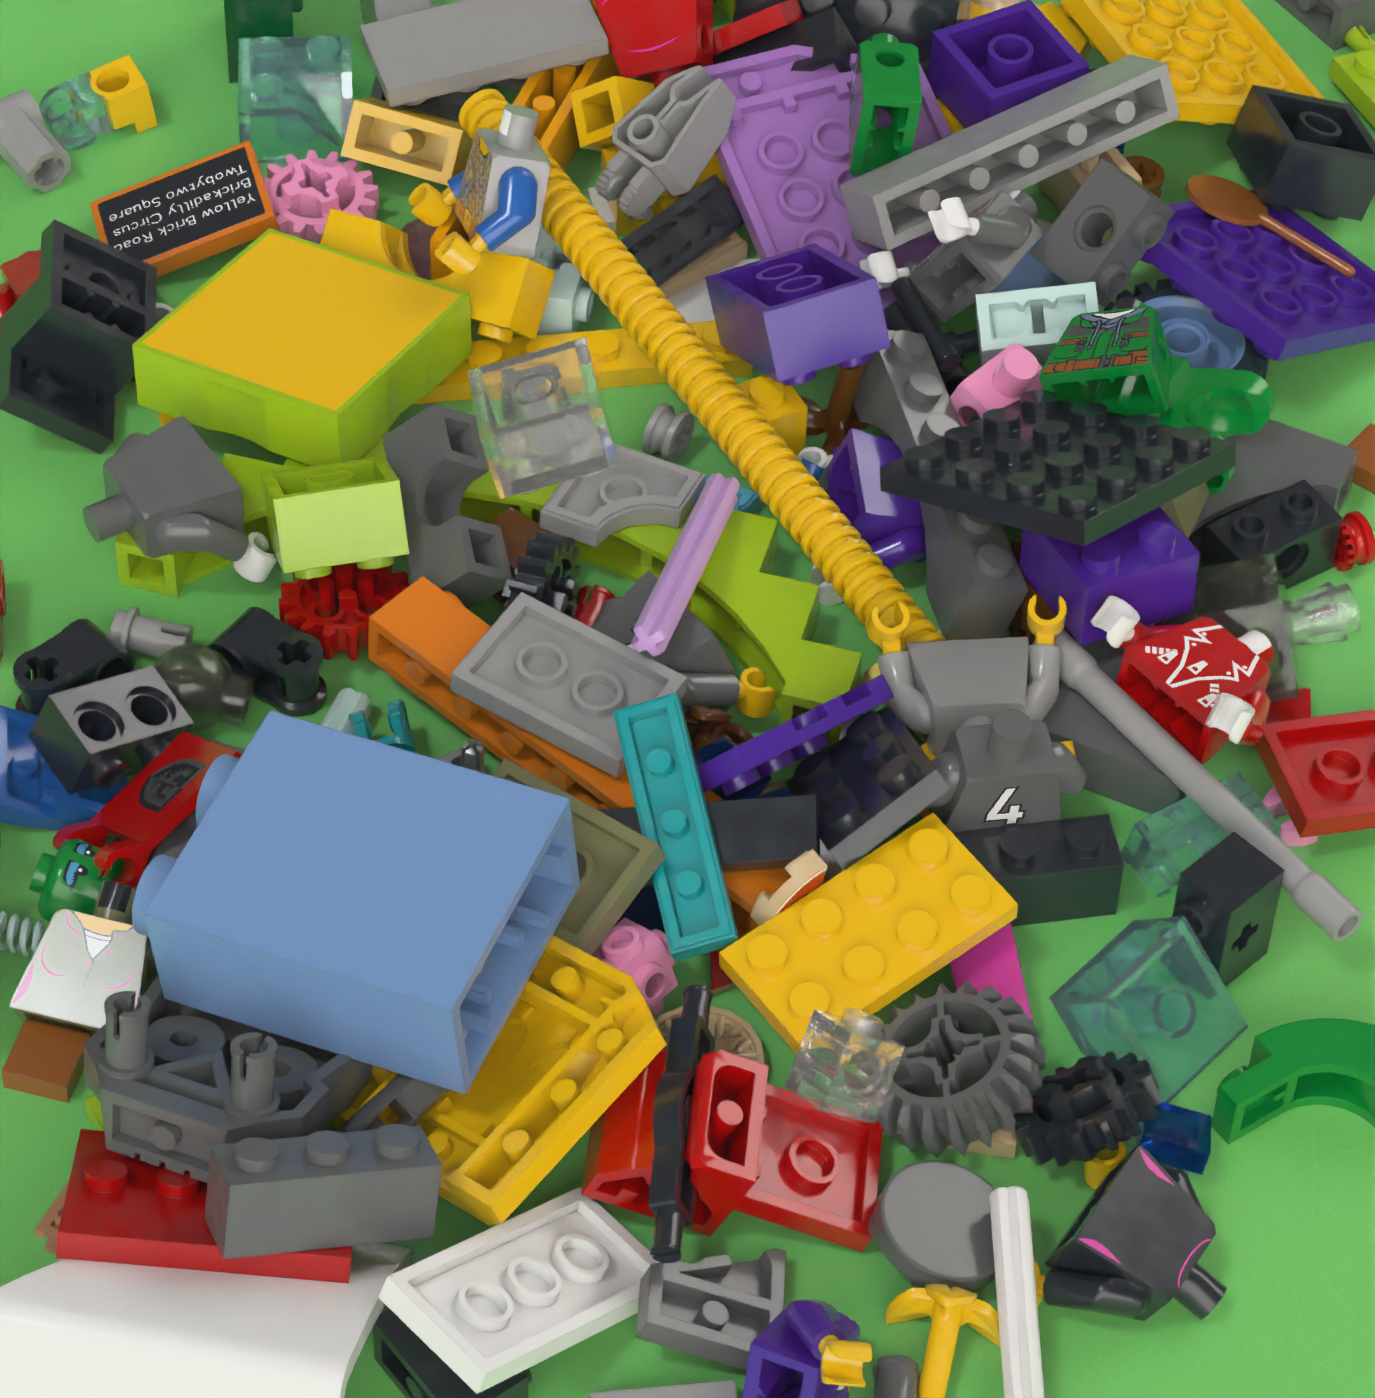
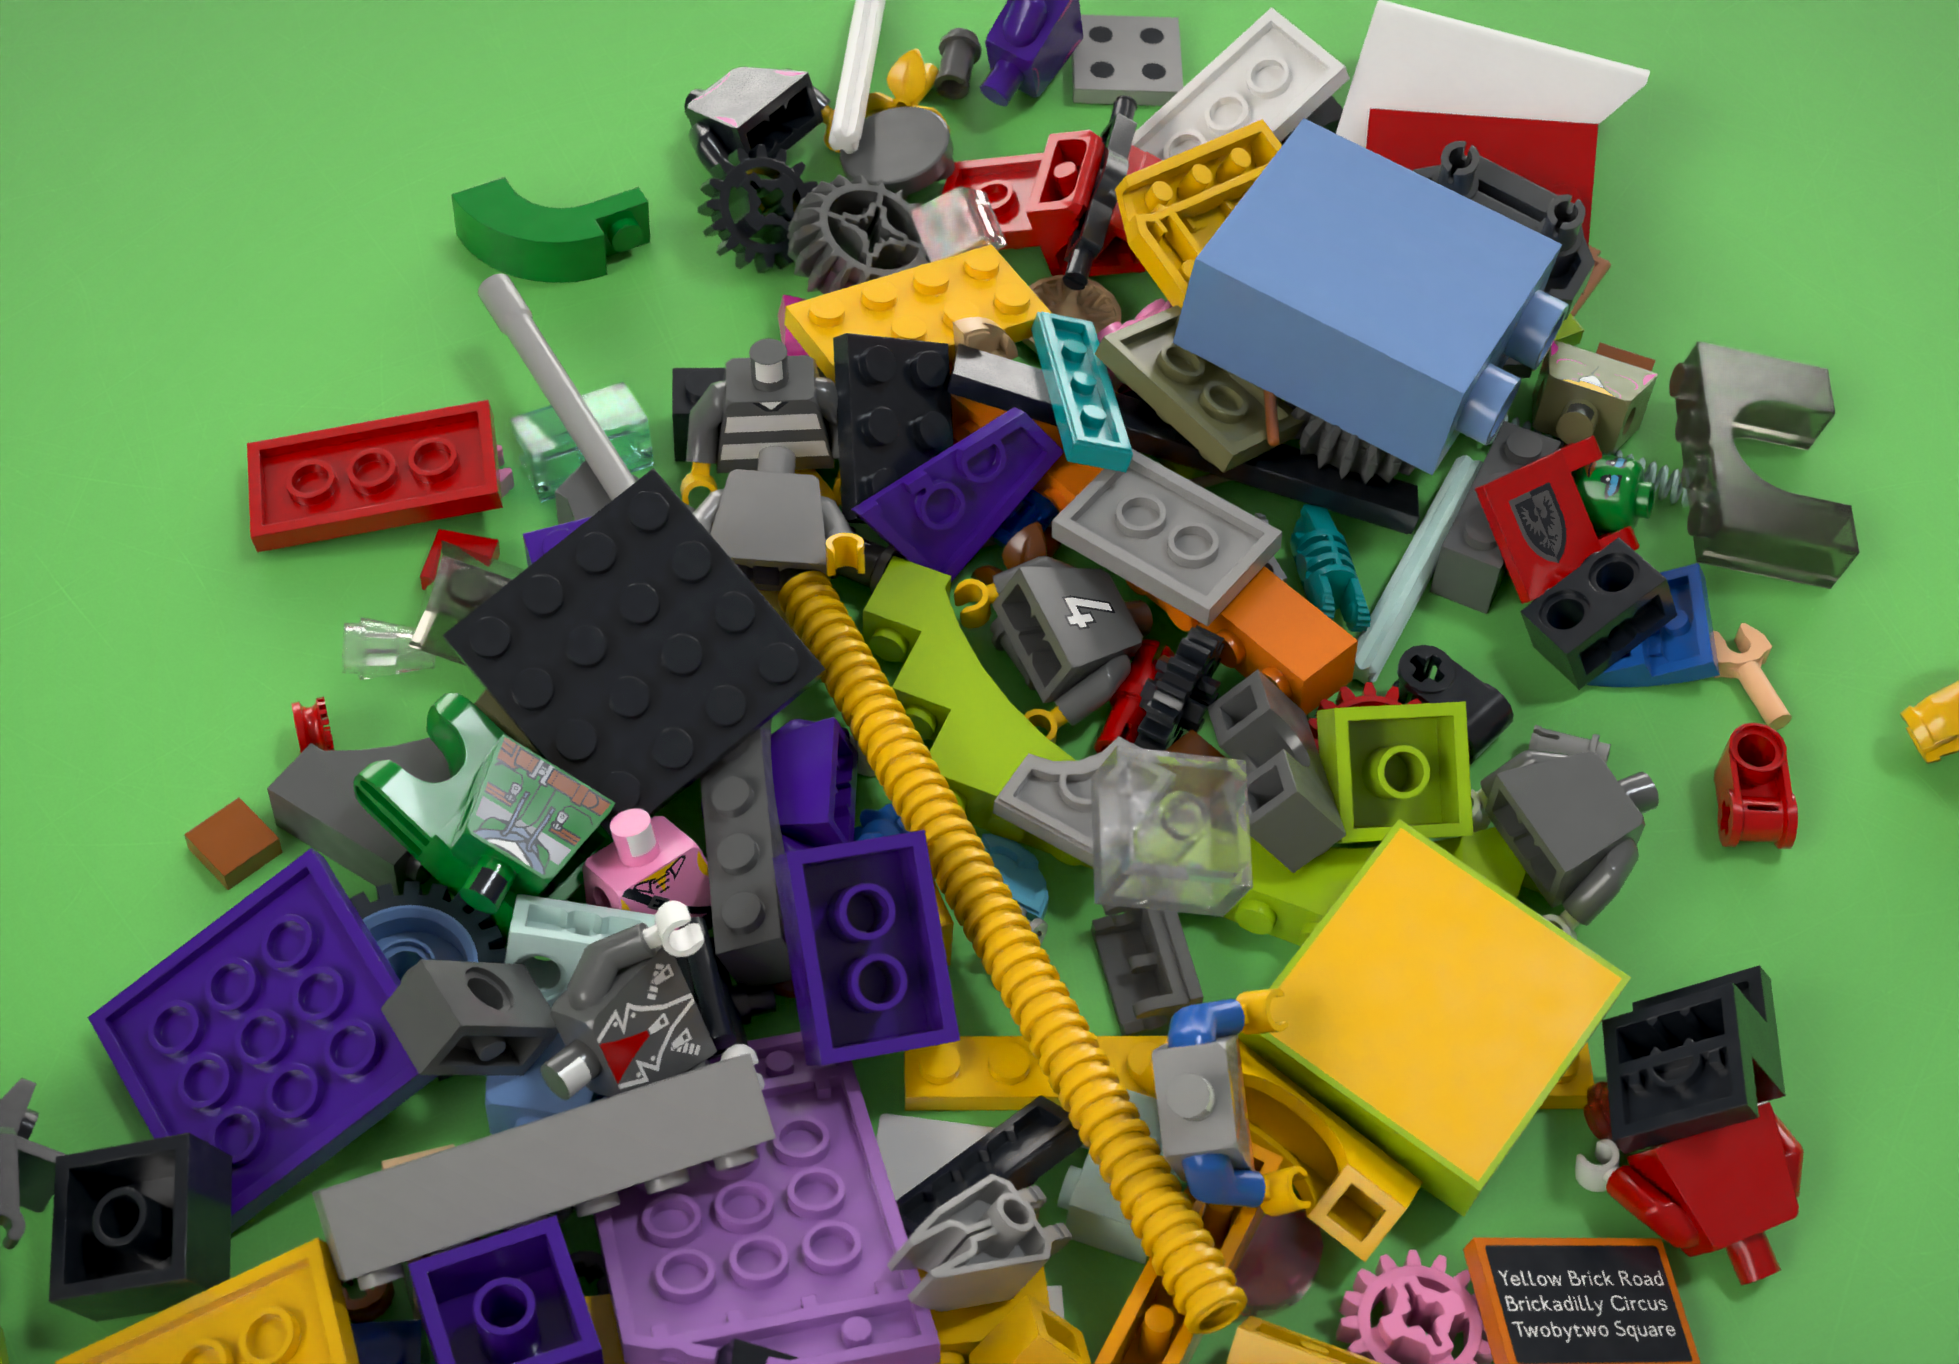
camera: 175 degrees left, 5 degrees up
(67, 661) = (1645, 708): black piece -> none
(205, 685) = (1526, 674): clear smoke piece -> none
(322, 1191) = (1411, 120): dark grey brick -> none
(685, 565) = (1033, 656): lavender axle -> none
(711, 1305) = (1082, 108): dark grey wing -> none
(890, 80) = (696, 1243): green torso -> none
(1152, 998) = (684, 302): clear light blue slope -> none
(1178, 1137) = (680, 204): clear blue plate -> none
(1192, 677) = (540, 477): red torso -> none
(1231, 904) = (596, 327): black brick -> none
(1242, 207) = (274, 1154): dark orange piece -> none
(1289, 523) = (394, 703): black brick -> none

